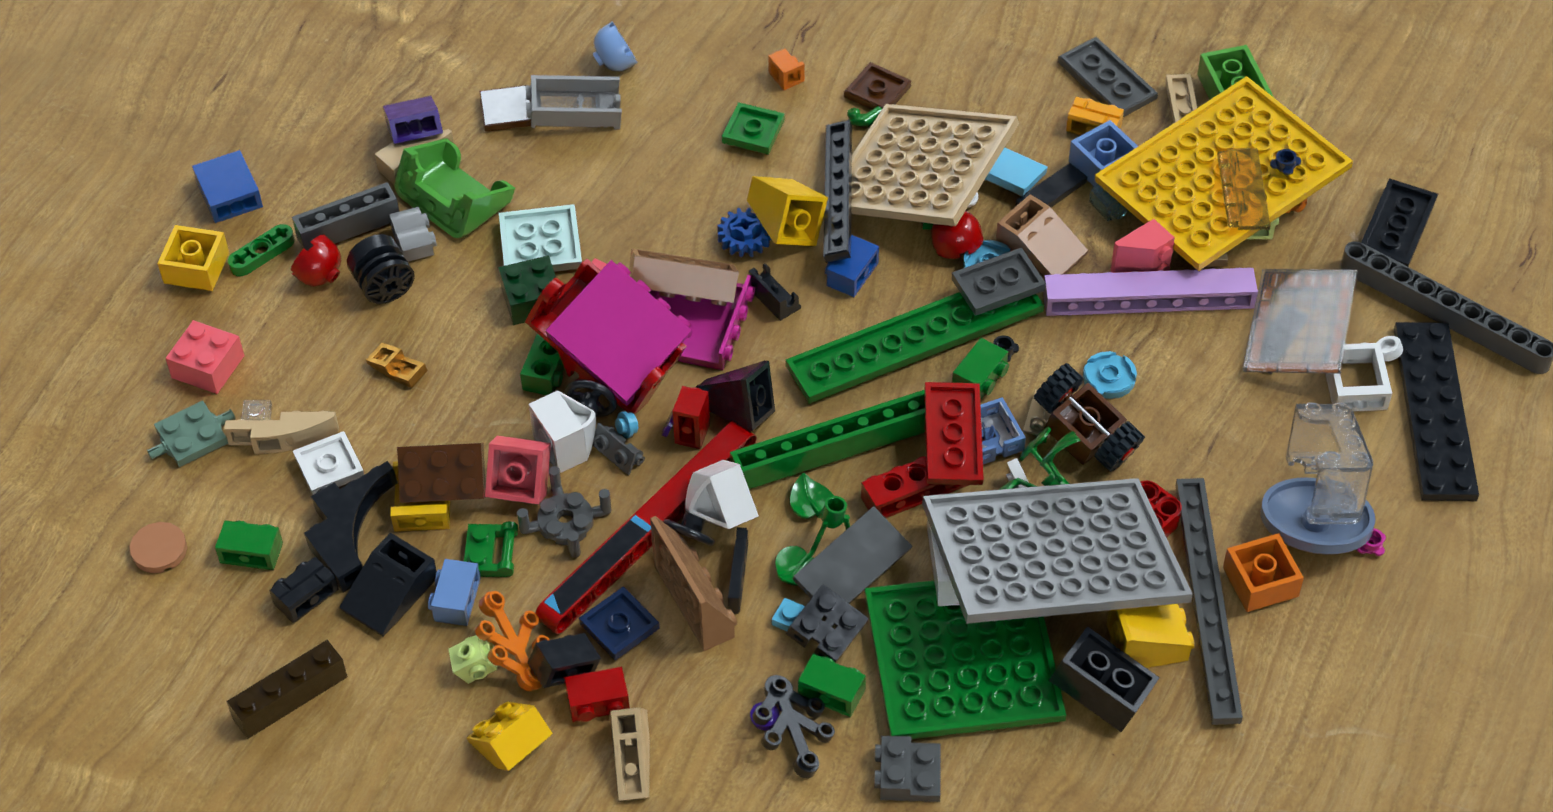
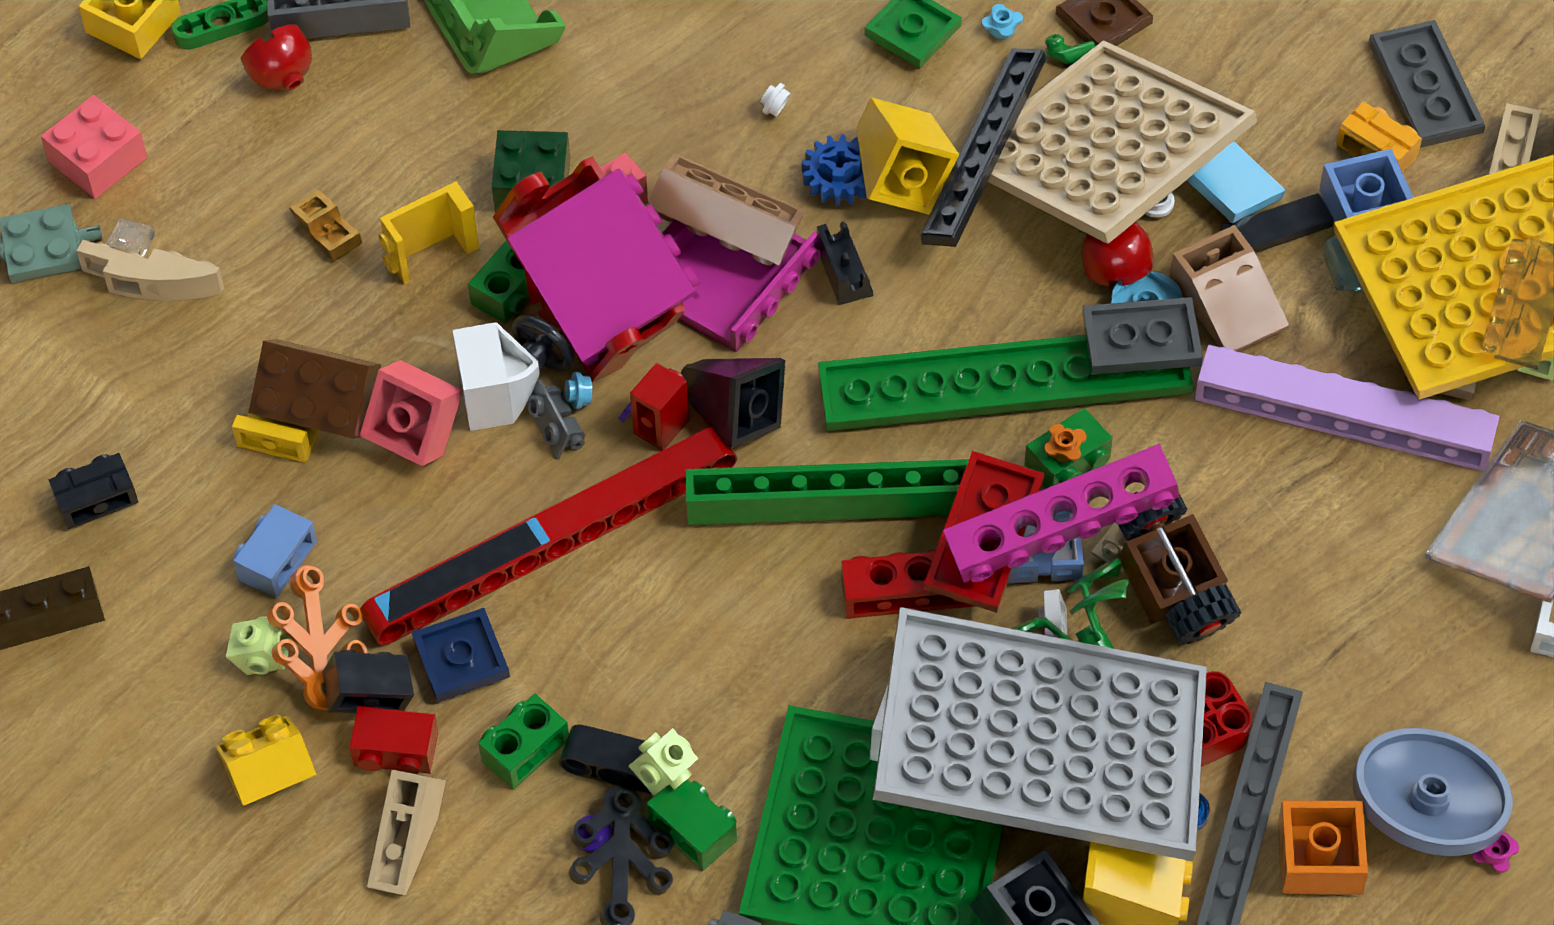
camera: 20 degrees right, 5 degrees up
(249, 545) = (51, 411): green brick -> none
(328, 462) = (189, 333): white plate -> none
(343, 513) = (181, 403): black arch -> none
(380, 269) = (350, 90): black wheel -> none
(389, 584) = (196, 516): black slope -> none
(412, 233) = (413, 53): light grey brick -> none
(481, 548) = (334, 499): green plate -> none
(483, 332) = (426, 223): none -> yellow panel
(541, 233) = (576, 99): light aqua plate -> none
(561, 505) = (448, 475): dark grey plate -> none
(679, 199) = (775, 99): none -> white plate
(691, 587) = (568, 633): medium nougat slope -> none
(694, 668) = (530, 745): none -> green brick
(715, 496) = (639, 527): white piece -> none
(738, 570) = (637, 631): black tile -> none
(761, 659) = (602, 756): none -> black beam
(786, 614) = (682, 712): medium azure plate -> none
(800, 648) = (664, 761): none -> yellowish green brick
(806, 501) = (778, 564): green plant -> none
(811, 110) = (1005, 28): none -> medium azure plate
(838, 612) = (735, 726): black piece -> none
(851, 273) = (960, 266): blue brick -> none
(855, 558) = (787, 665): dark grey tile -> none
(980, 363) = (1061, 451): none -> orange plate
(1008, 344) = (1121, 423): black plate -> none
(1054, 356) = (1074, 496): none -> dark pink brick
(1110, 374) = (1243, 508): medium azure tile -> none
(1143, 249) = (1356, 348): coral slope -> none
(1333, 447) = (1476, 737): clear windscreen -> none

